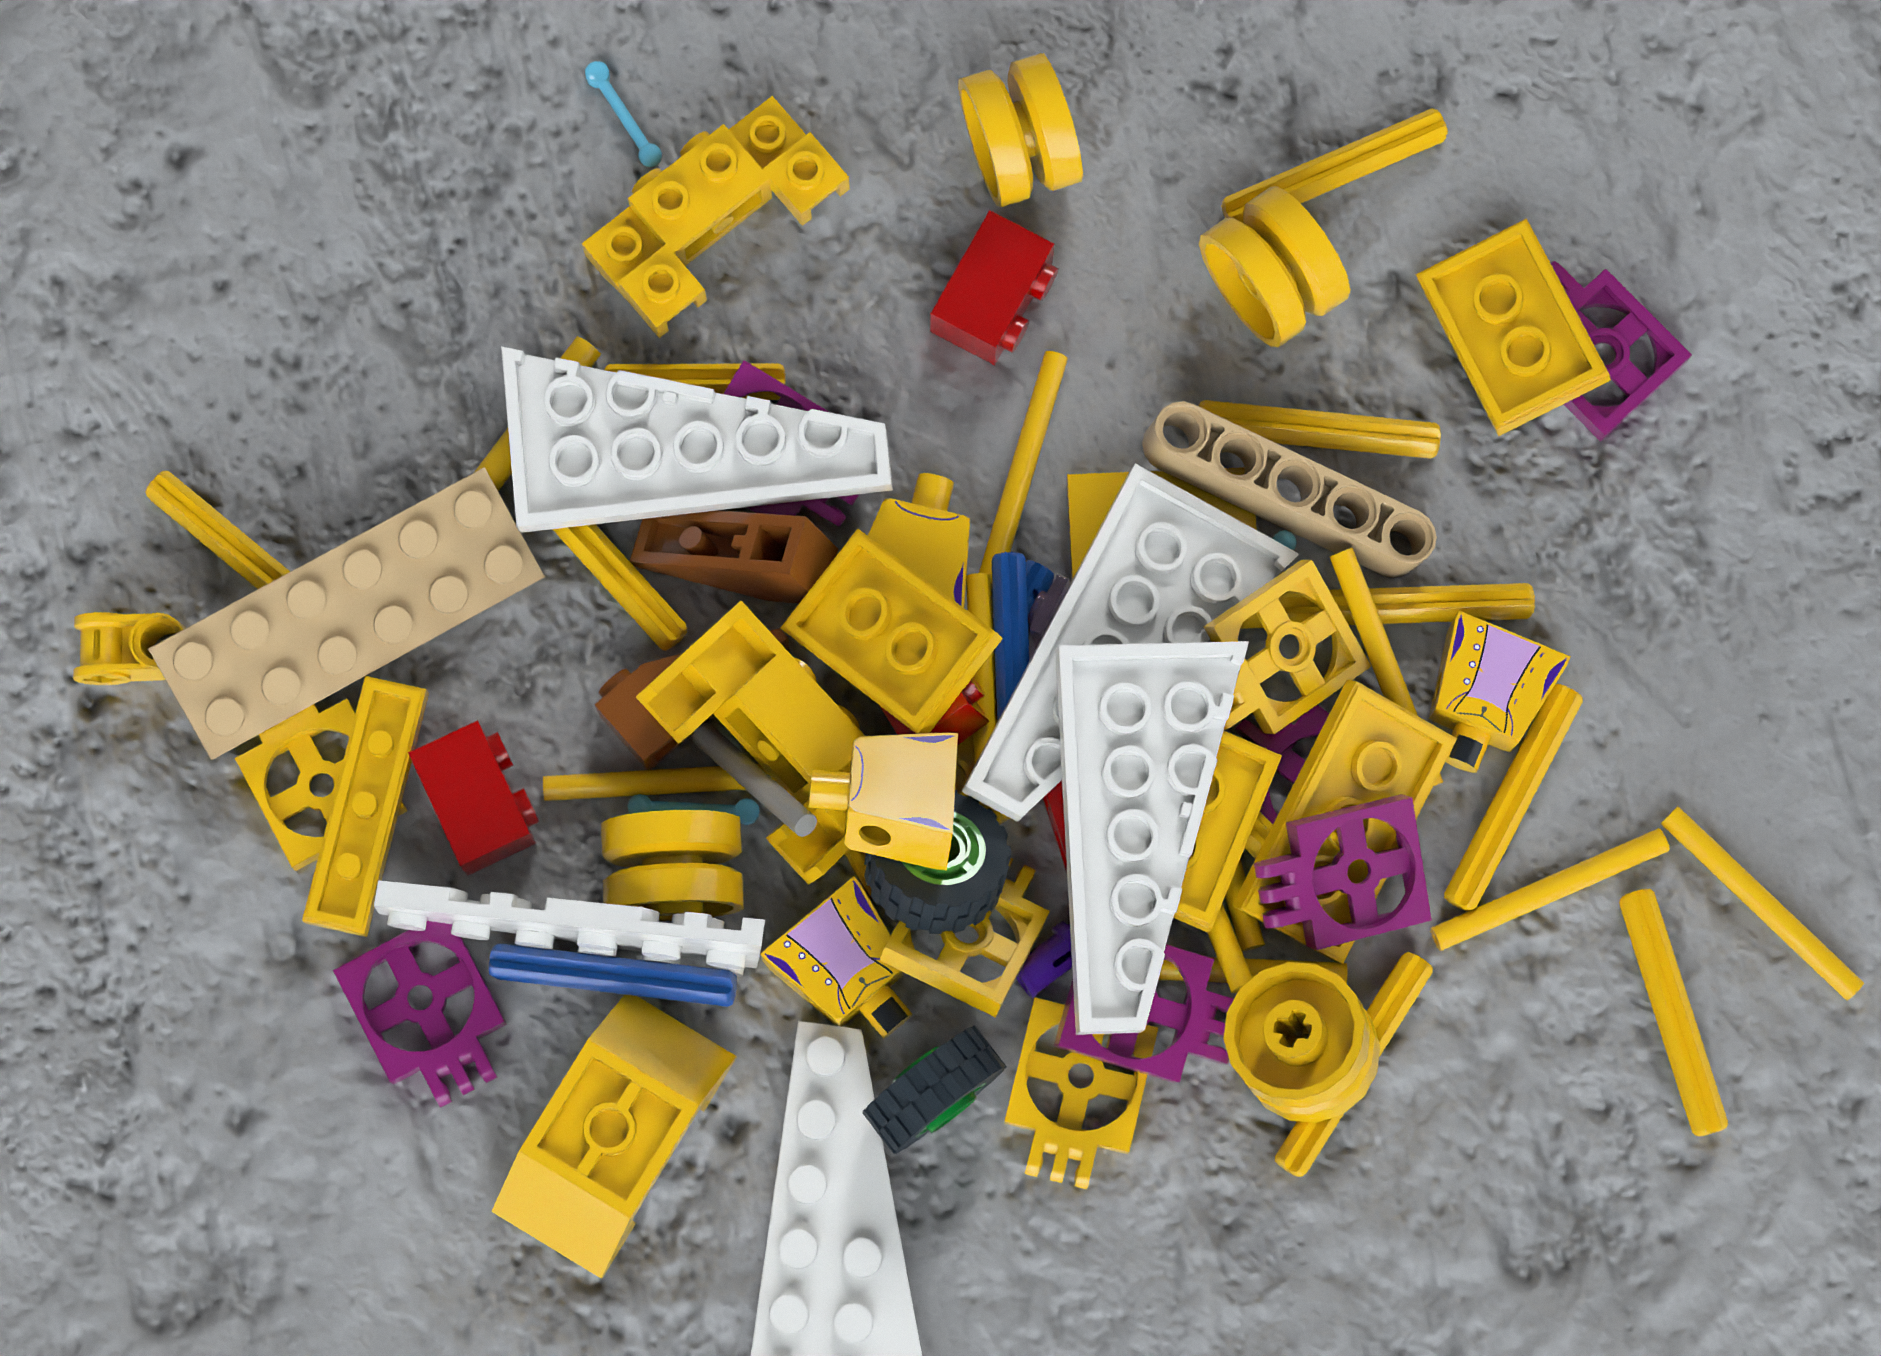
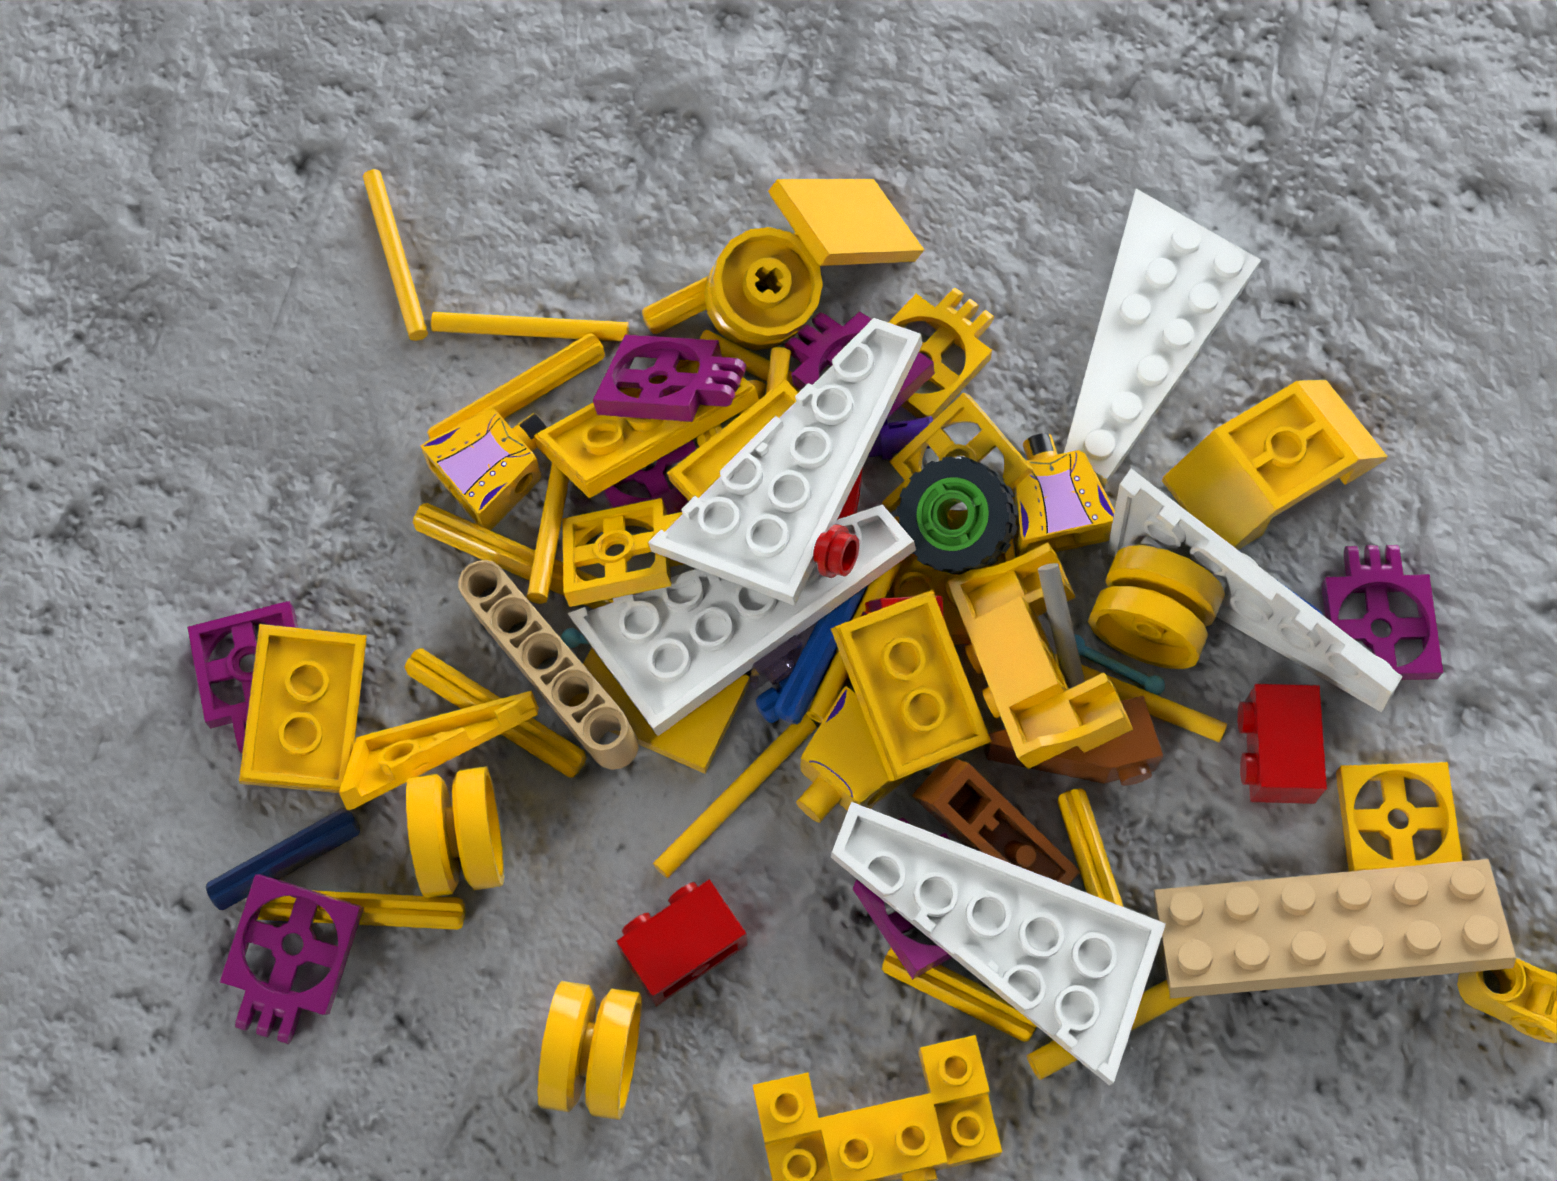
camera: 150 degrees left, 10 degrees down
(214, 530) = (1408, 1056): yellow axle -> none
(365, 806) = (1371, 776): yellow tile -> none
(895, 796) = (970, 553): yellow torso -> none
(934, 1089) = (1036, 371): black wheel -> none
(1039, 721) = (836, 551): none -> red plate
(1252, 1180) = (845, 221): none -> yellow tile
(1360, 51) = (276, 997): none -> magenta piece
(1373, 333) = (406, 751): none -> yellow wing
(1437, 180) = (284, 857): none -> dark blue axle
(1673, 1012) = (498, 216): yellow axle -> none

